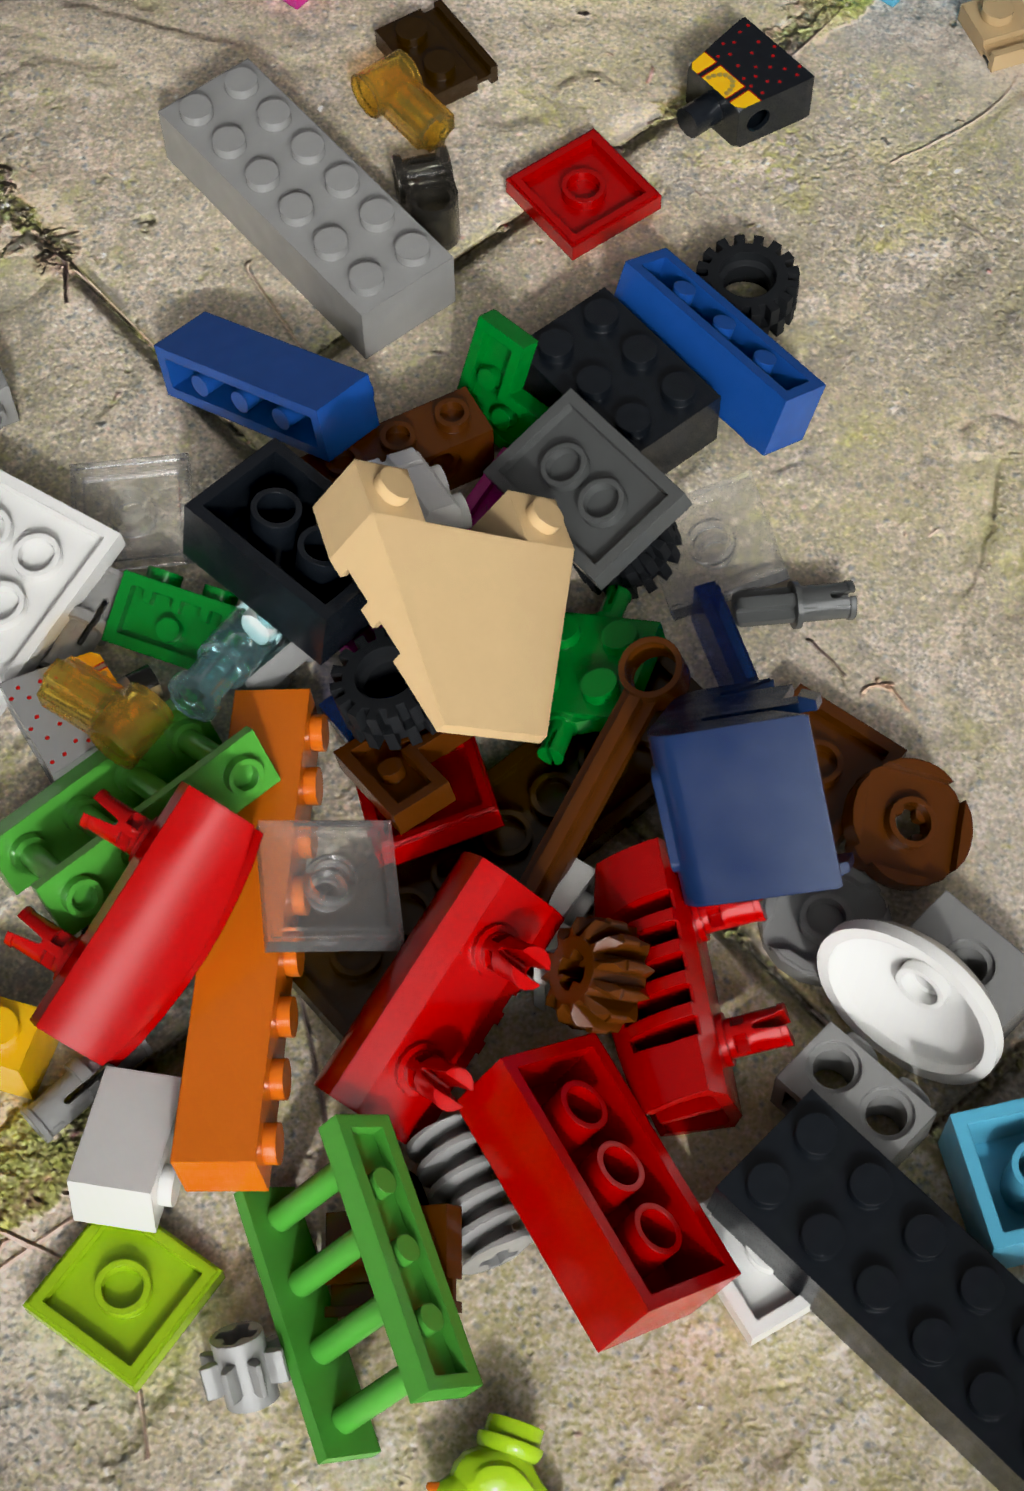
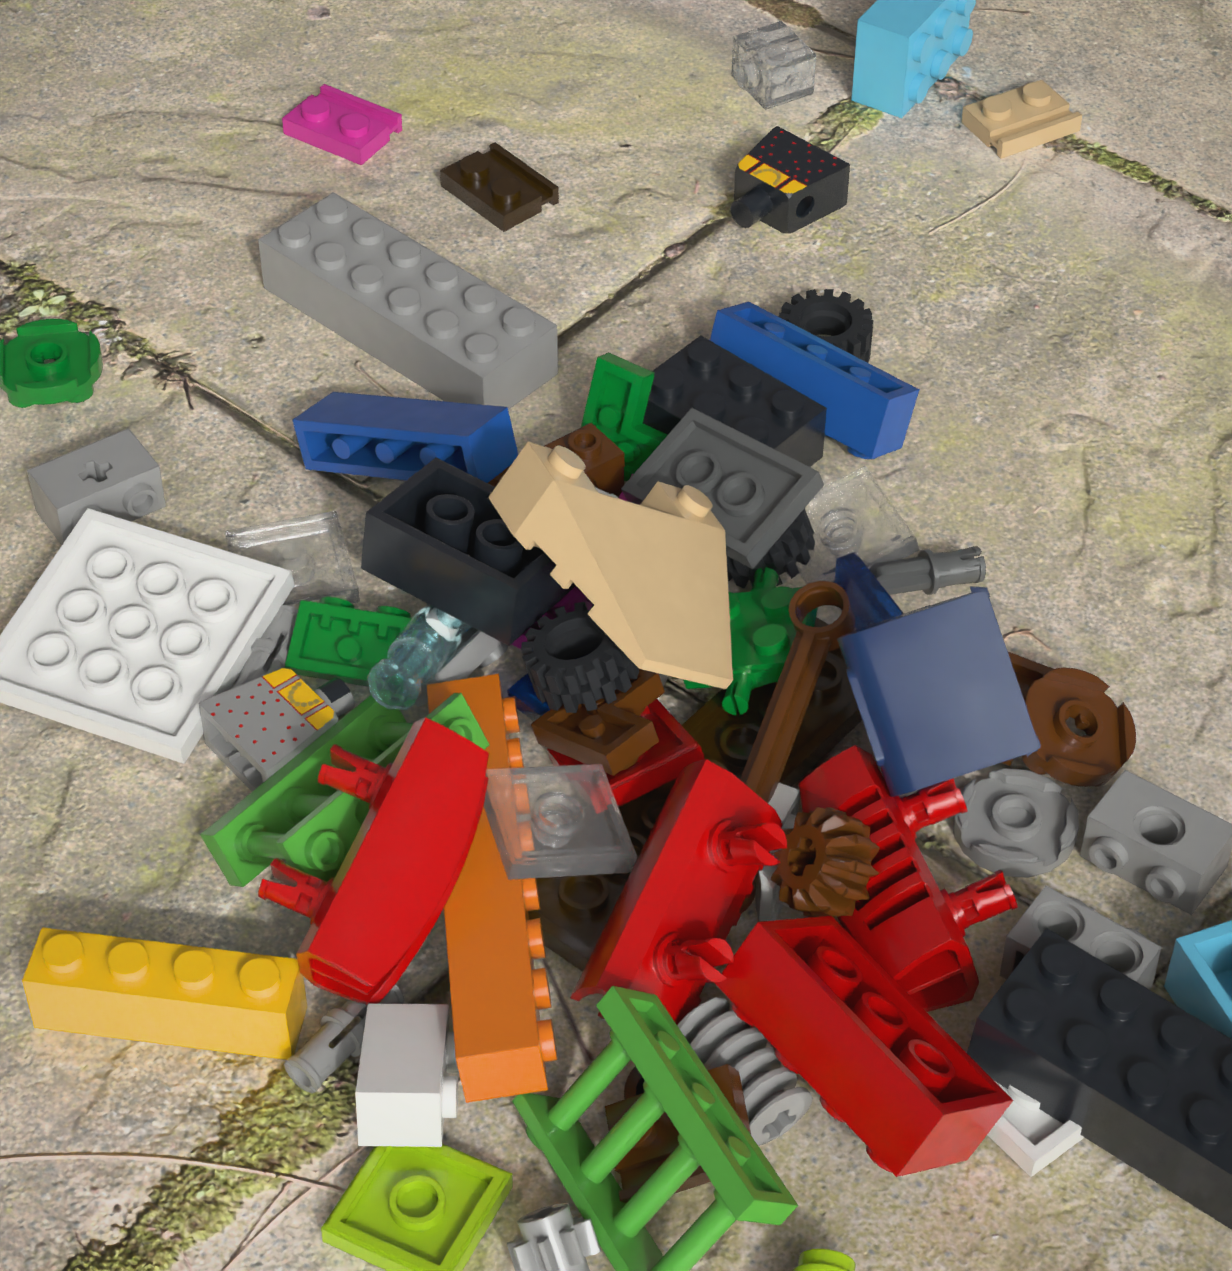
camera: 10 degrees left, 15 degrees down
(116, 718) = (320, 709): clear yellow piece -> none
(396, 91) = (470, 213): clear yellow piece -> none
(429, 193) = (520, 279): clear smoke piece -> none
(583, 194) = (657, 279): red tile -> none
(911, 1000) = (1118, 850): white dish -> none

